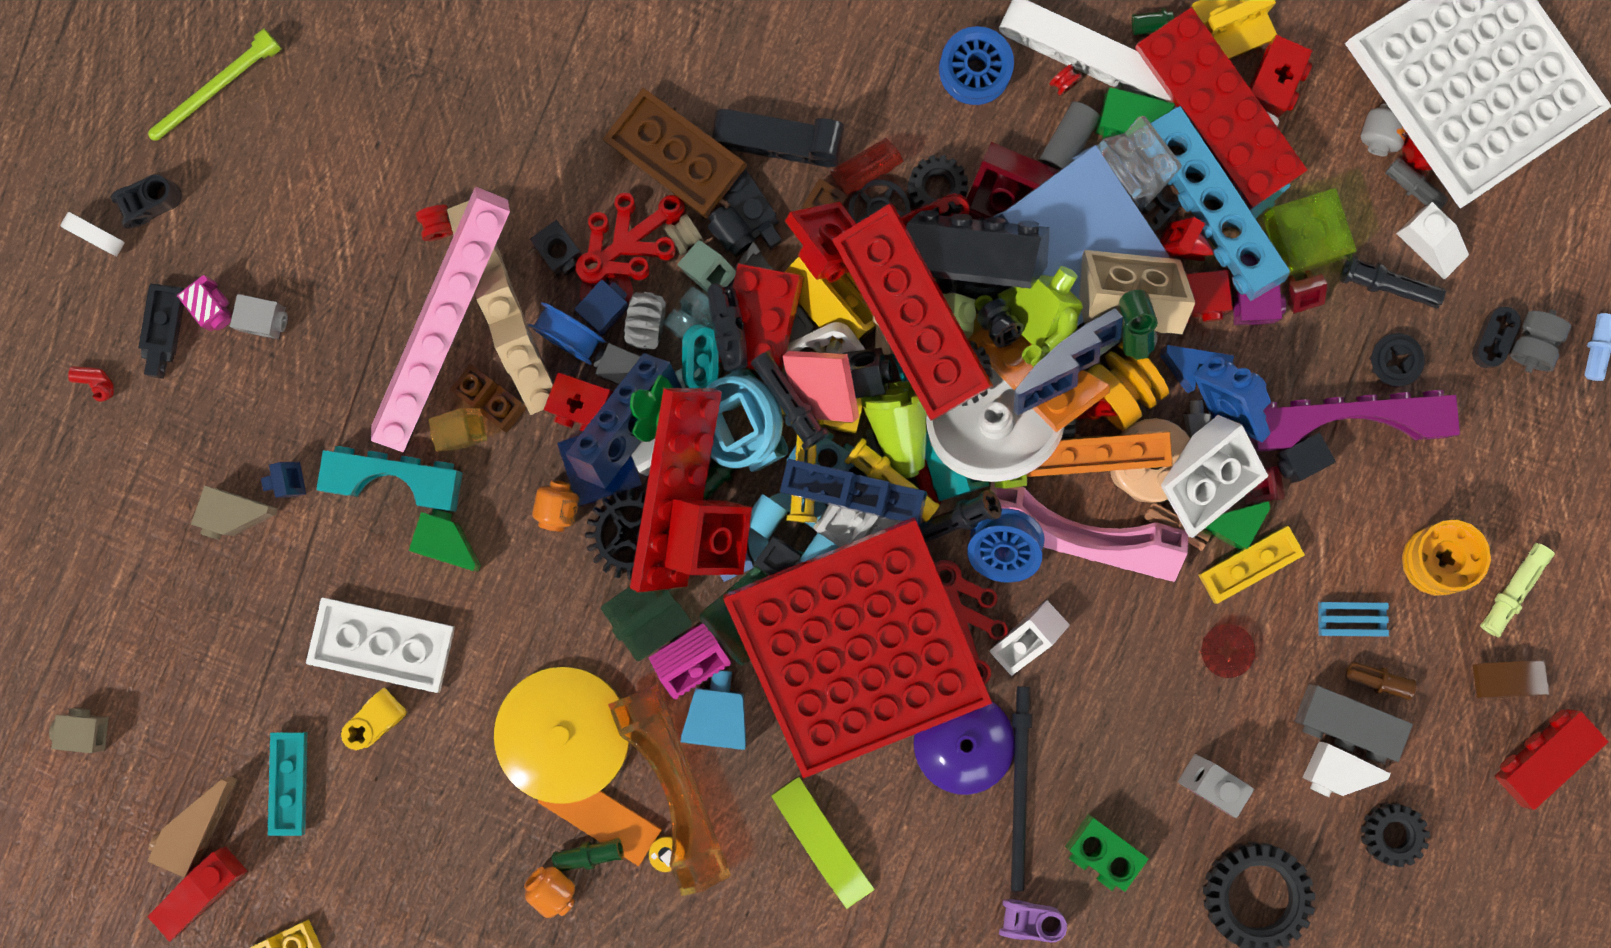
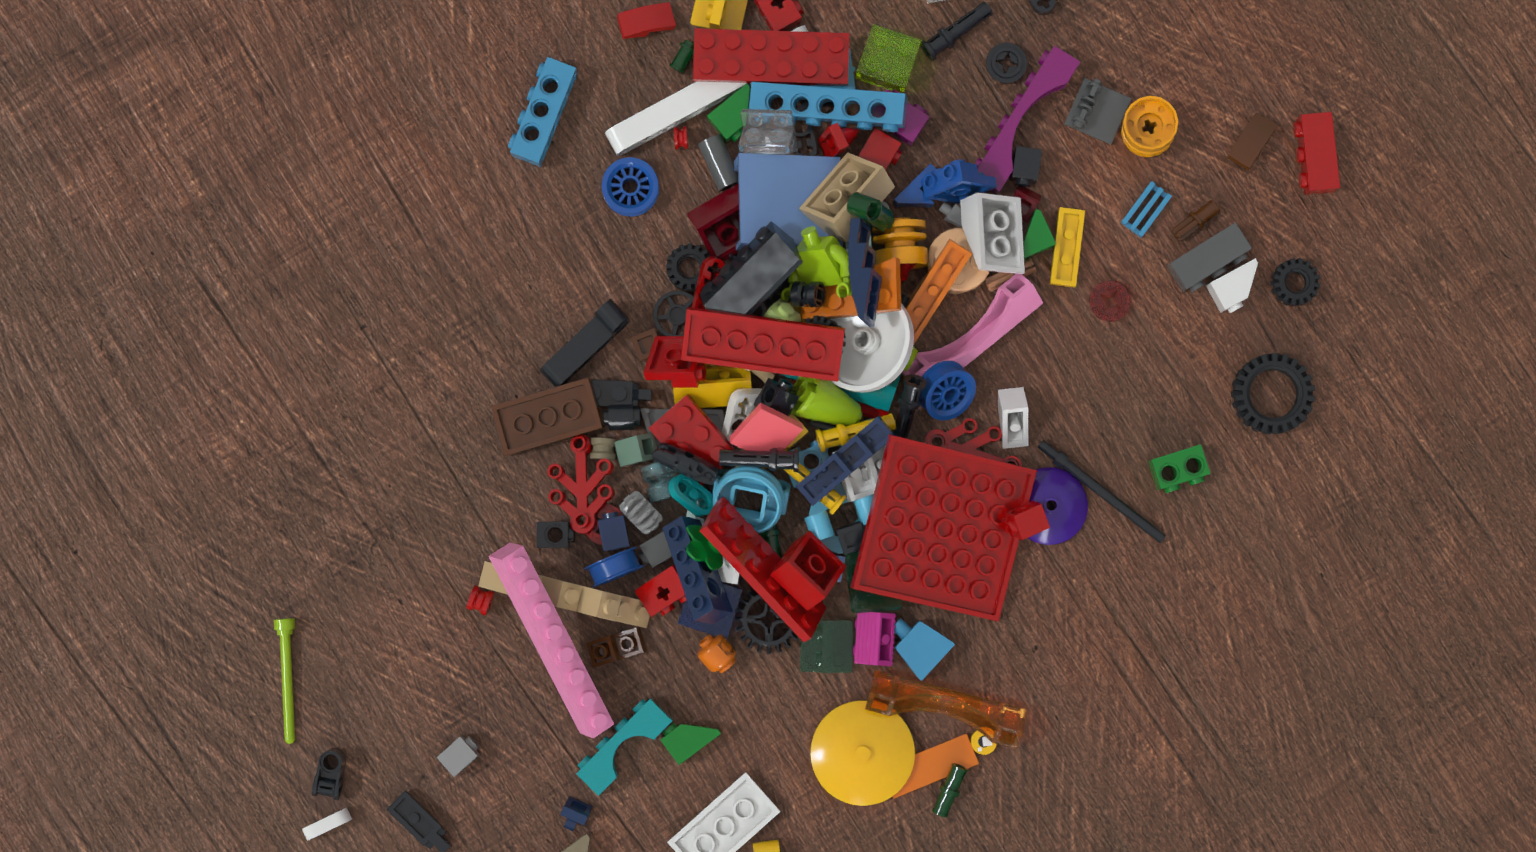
camera: 55 degrees left, 0 degrees up
(206, 304) = (427, 782): dark pink brick -> none
(457, 429) = (623, 680): clear yellow brick -> none
(549, 892) = (955, 830): orange head -> none
(822, 842) = (1046, 638): lime slope -> none
(866, 166) = (644, 302): clear red plate -> none
(930, 731) = (1026, 520): none -> red brick
(1030, 920) = (1186, 545): medium lavender piece -> none
(1216, 786) = (1186, 370): light grey torso -> none
(1306, 292) = (924, 87): dark red tile -> none
(1419, 492) = (1097, 110): none -> dark grey hinge
(1521, 583) = (1198, 89): yellowish green pin -> none

